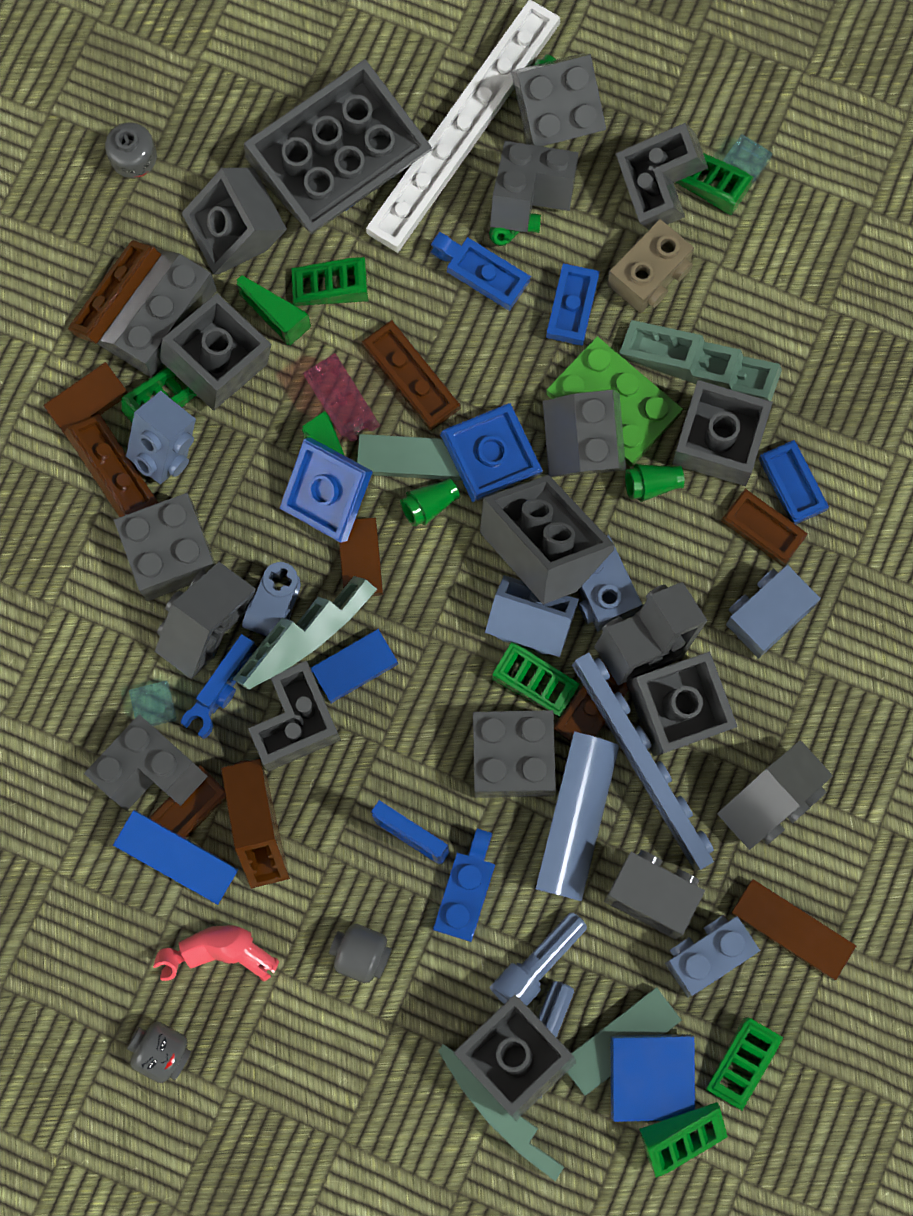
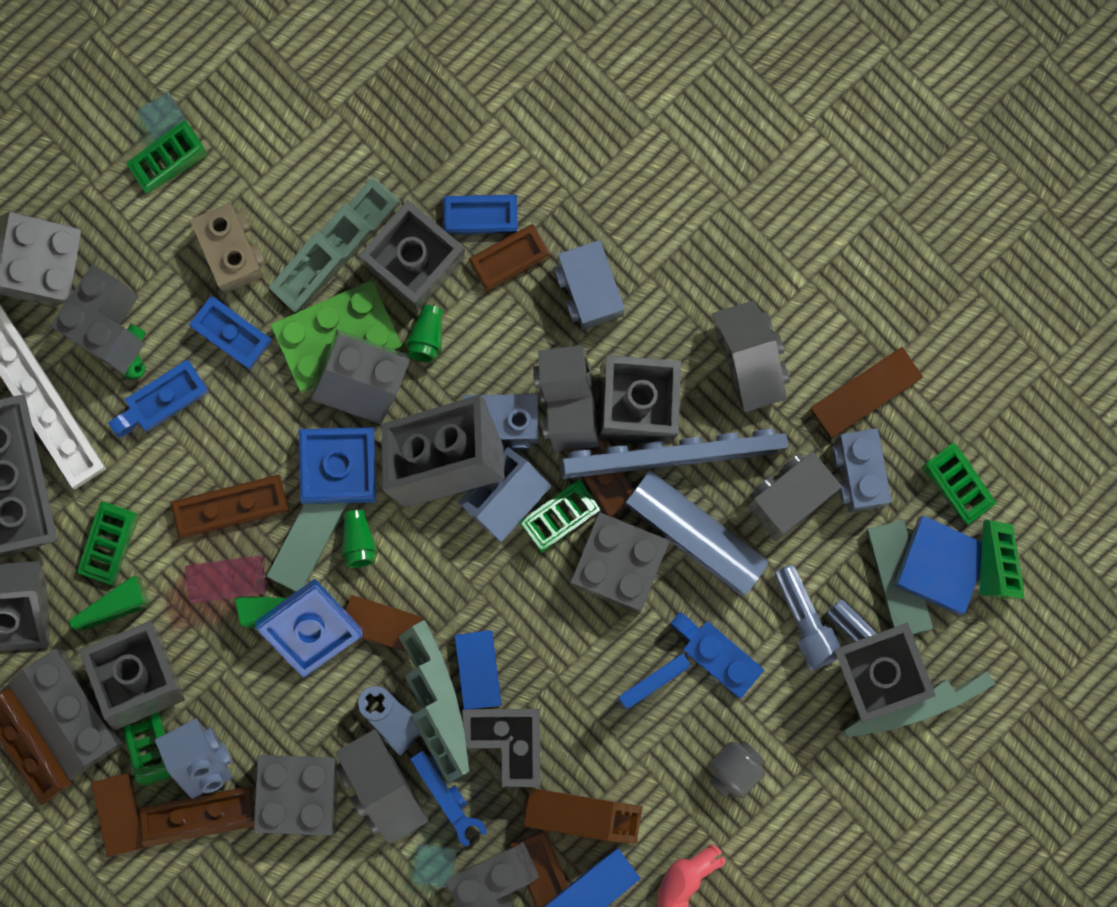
camera: 75 degrees left, 5 degrees up
(653, 169) = (139, 207): dark grey brick -> none

